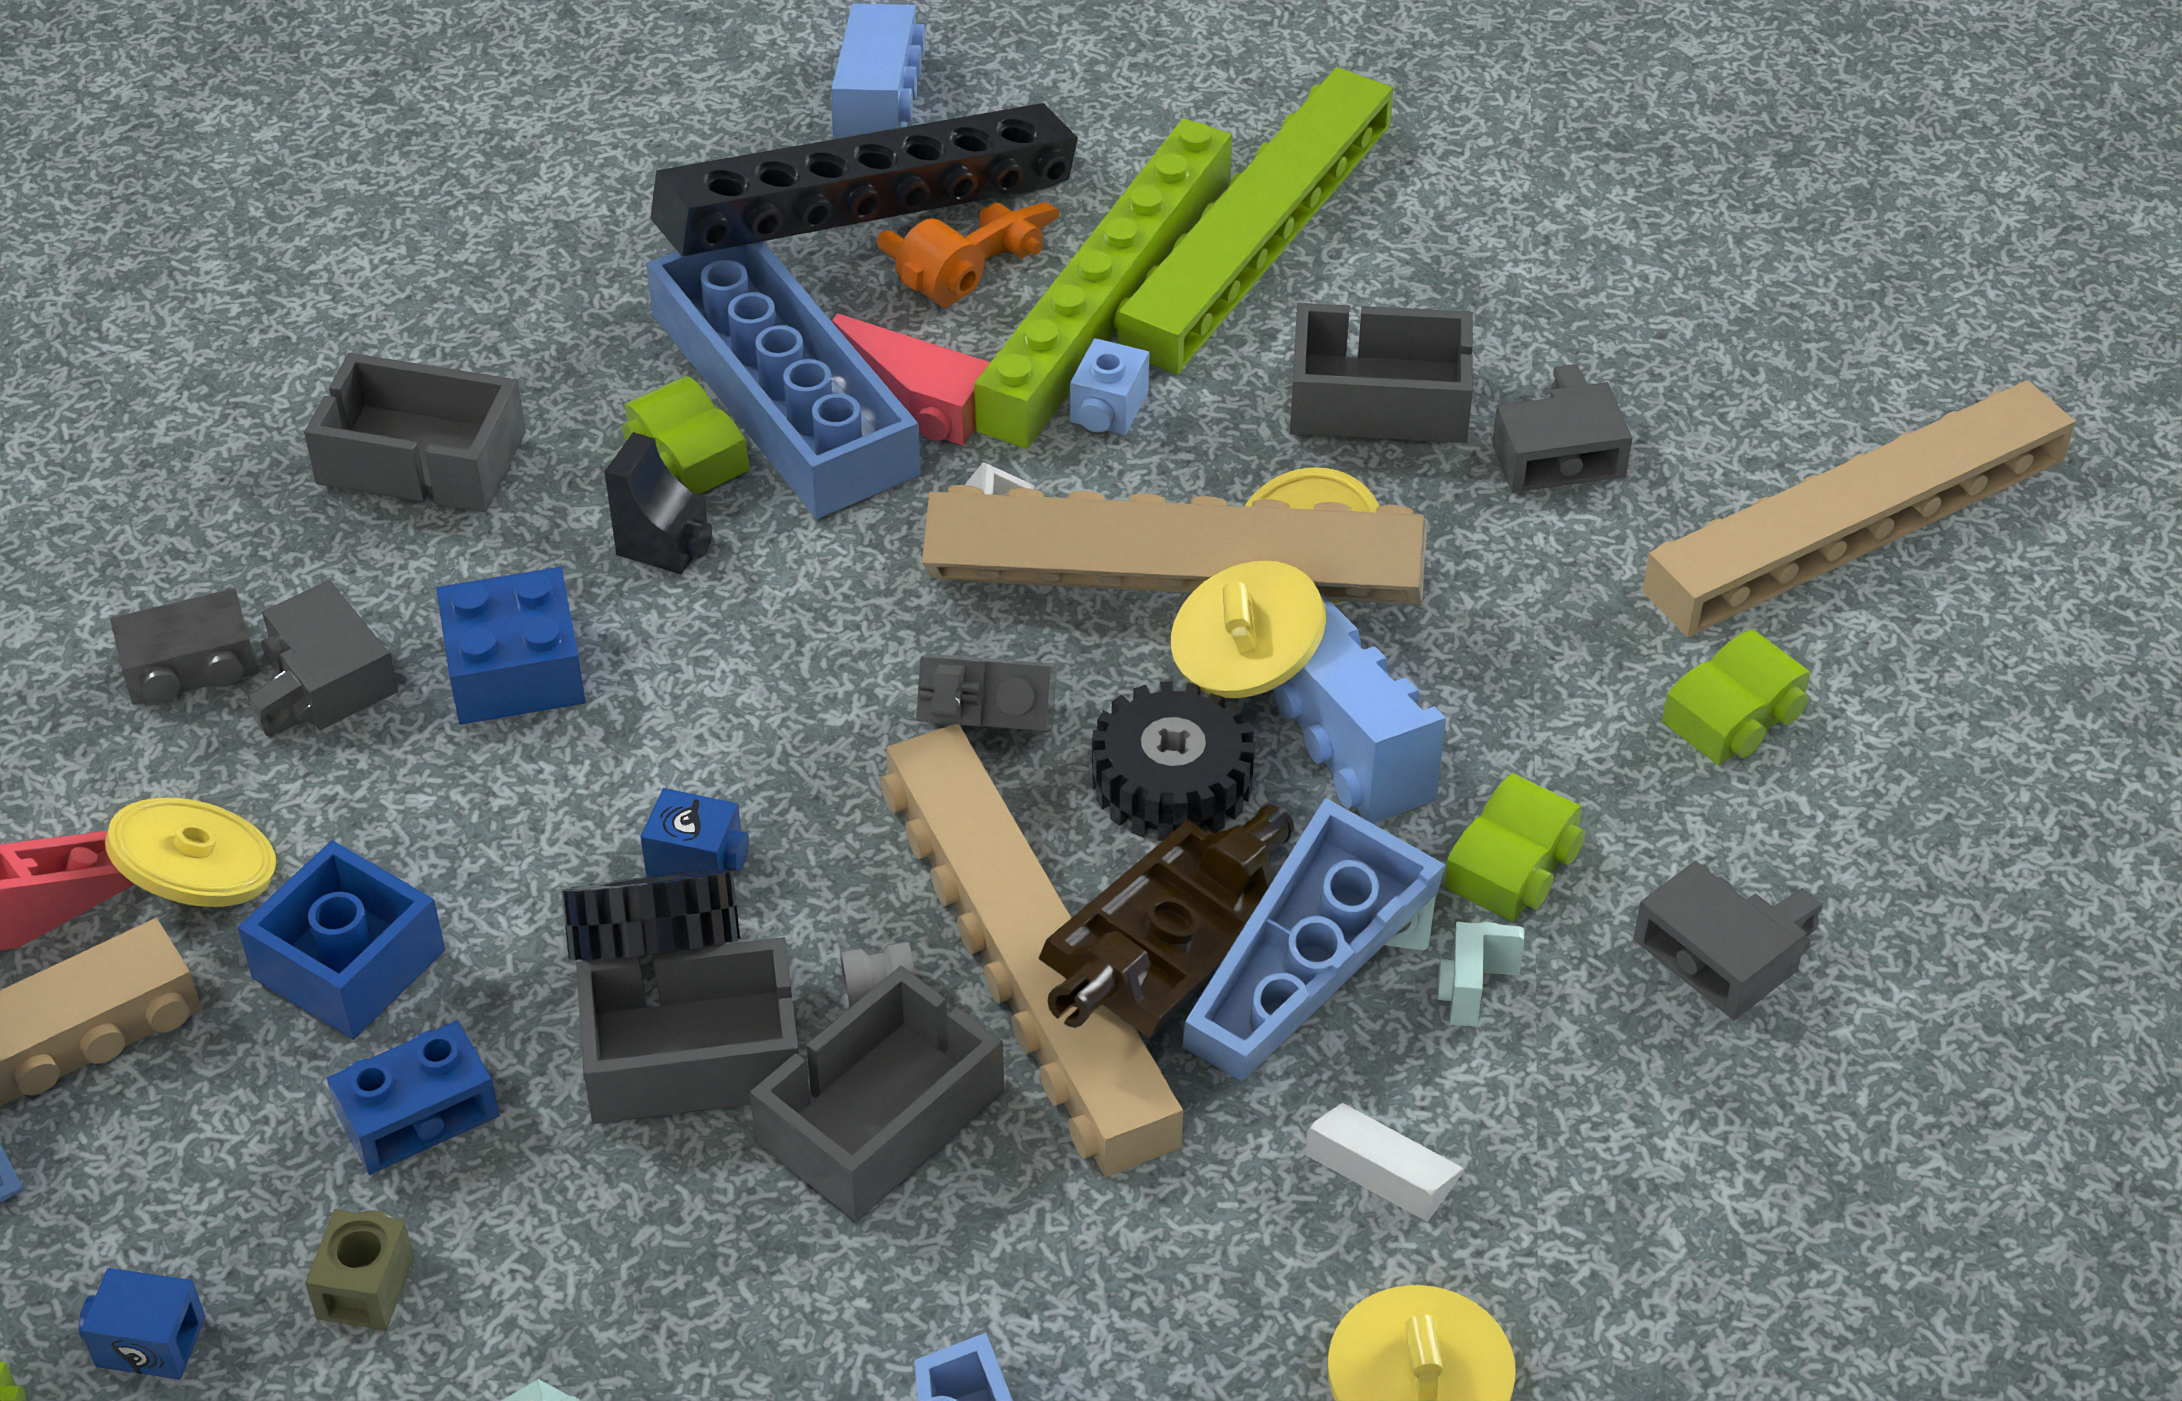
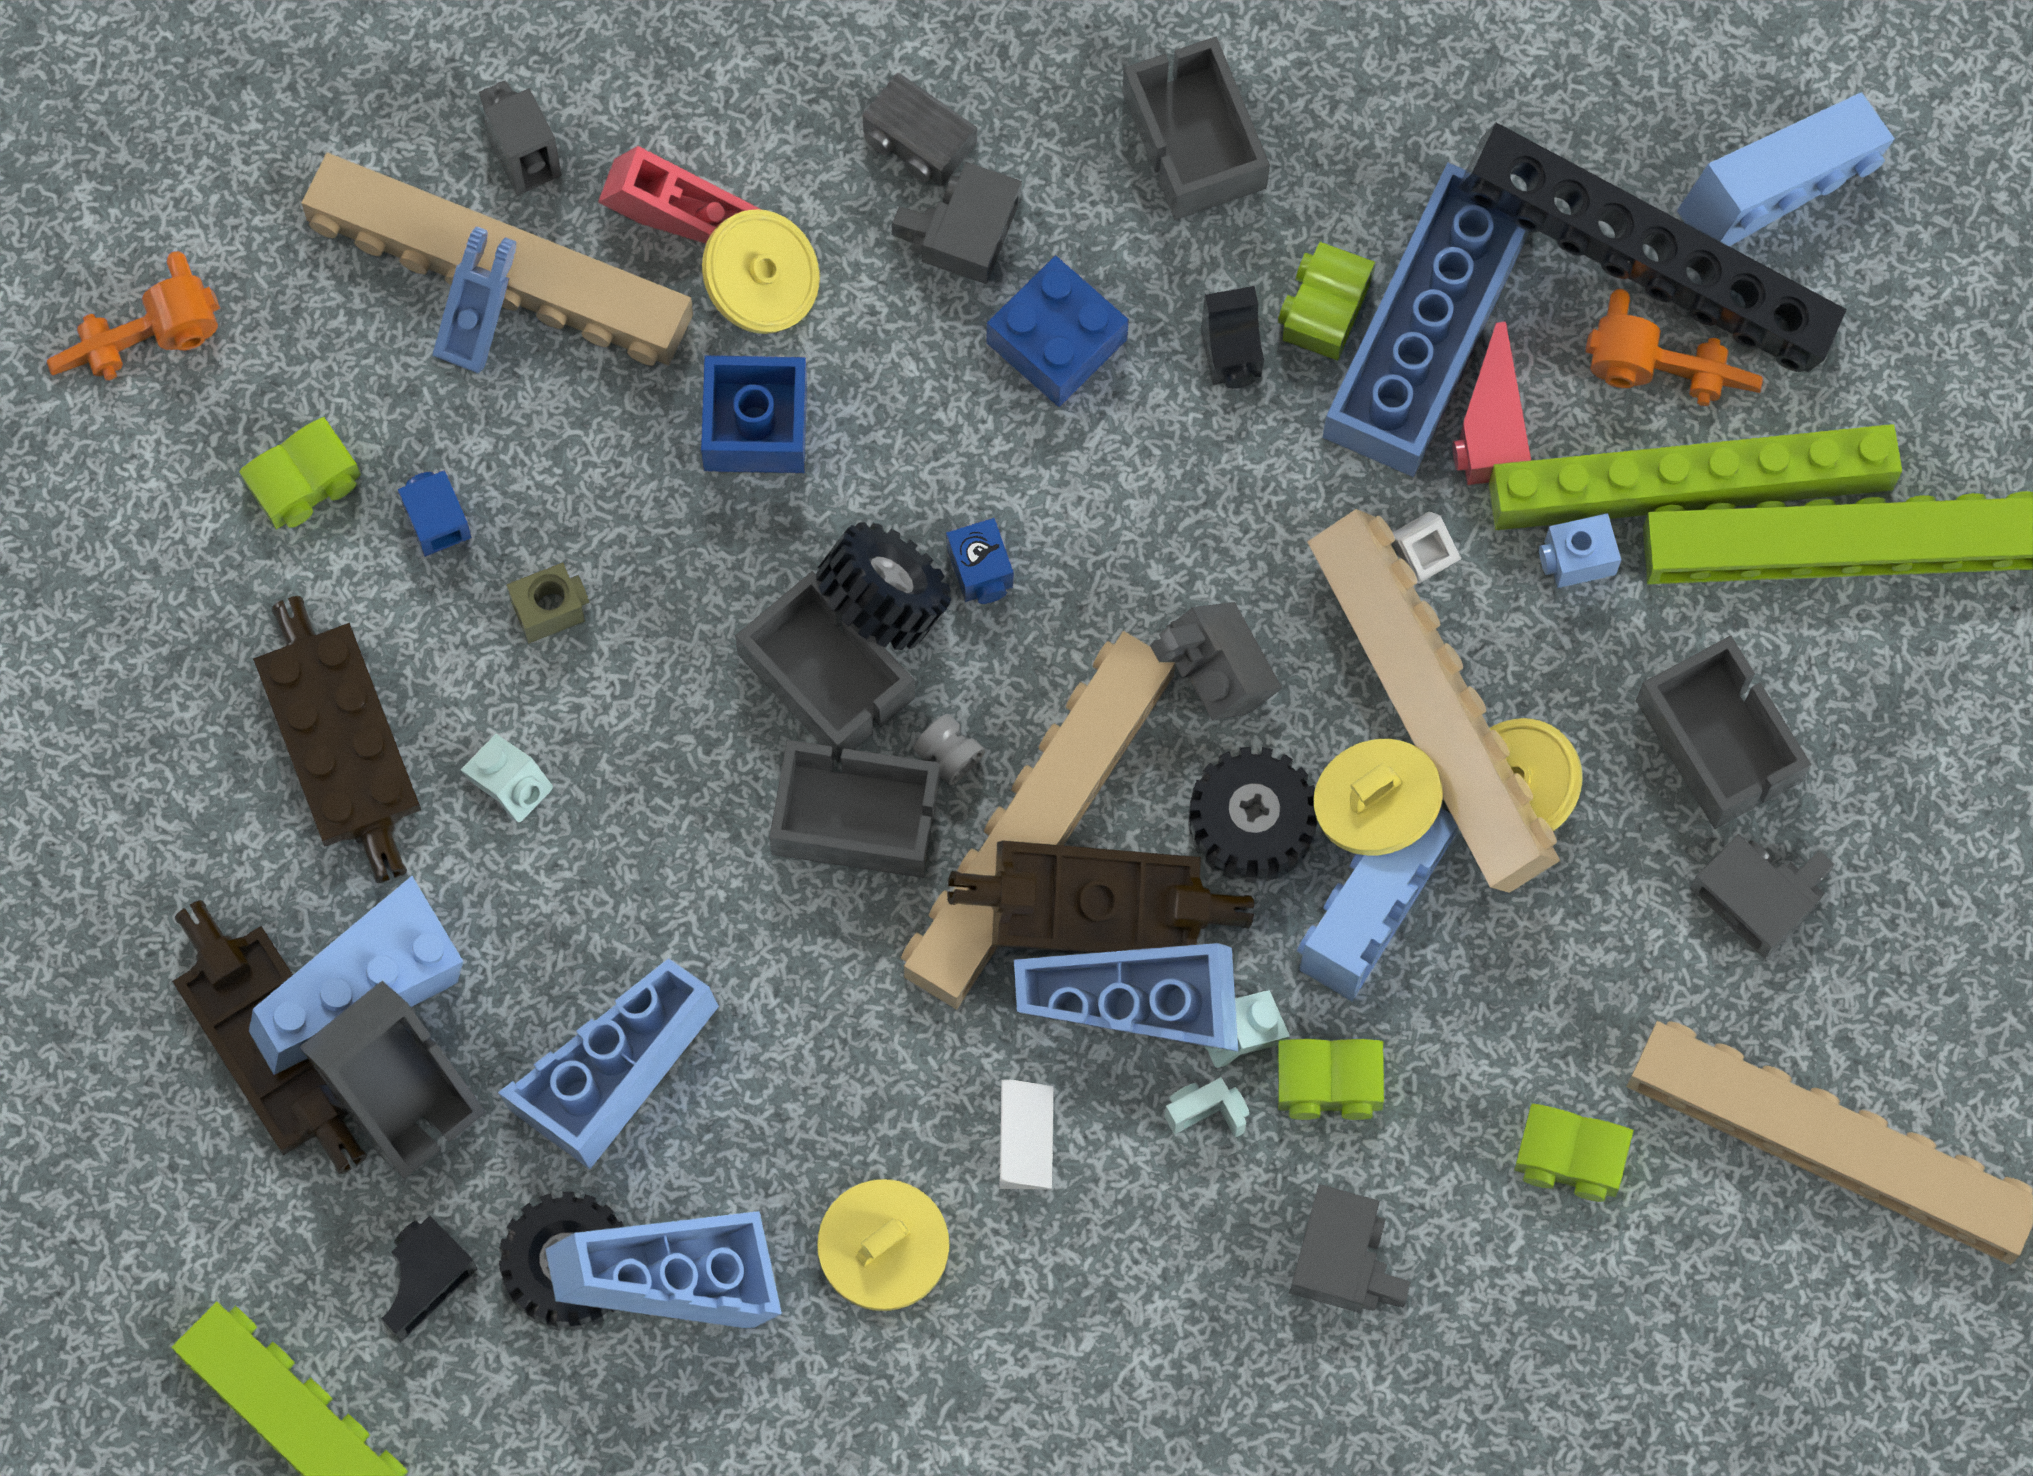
camera: 55 degrees right, 25 degrees up
(413, 1096) = (679, 539): blue brick -> none

